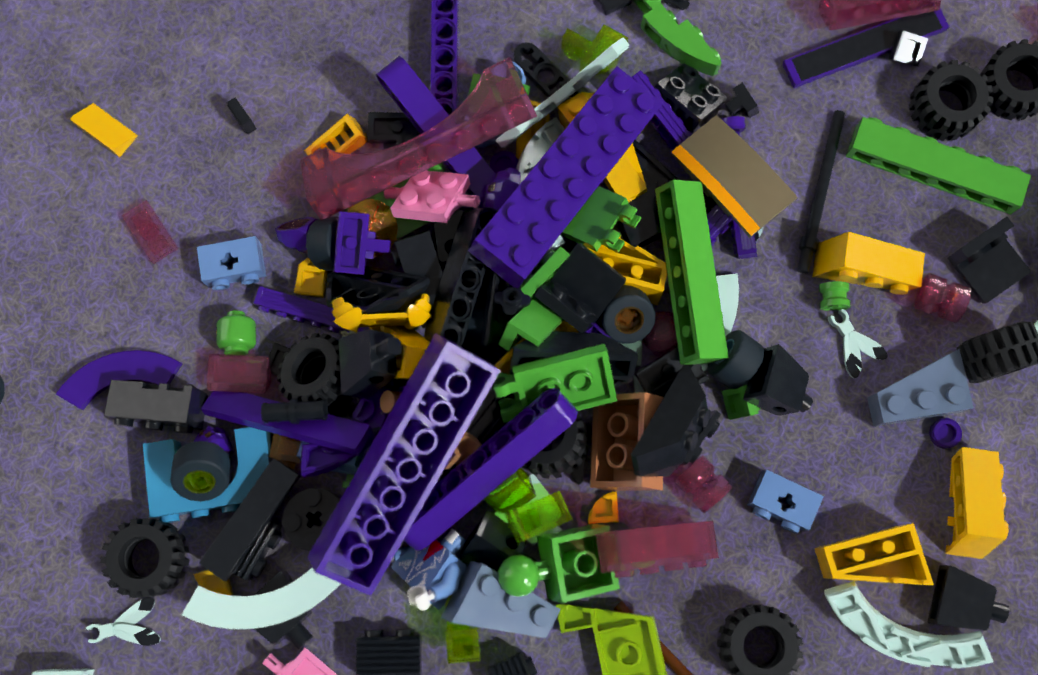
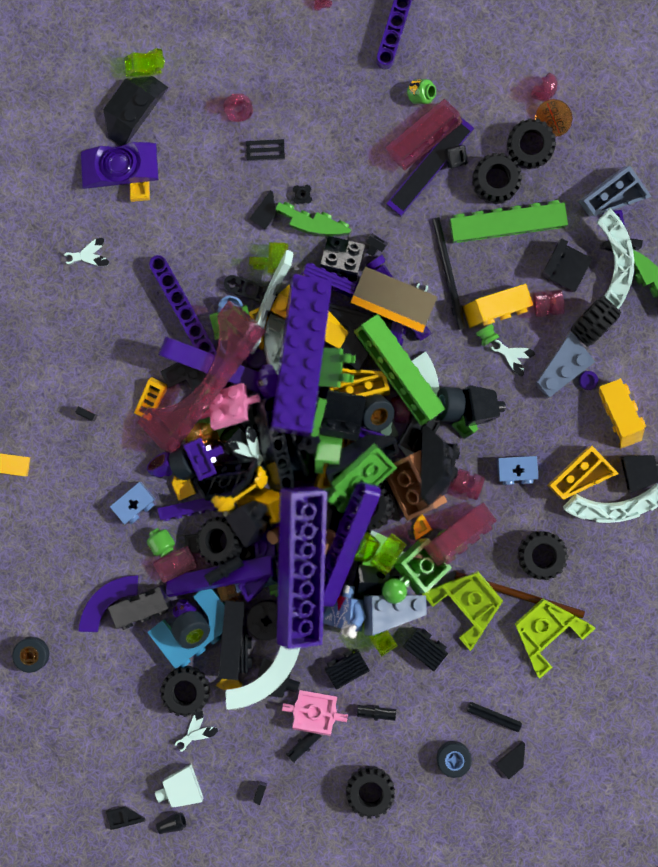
camera: 25 degrees left, 10 degrees up
(150, 232) = (73, 510): clear pink plate -> none
(427, 268) = (251, 449): none -> light aqua piece

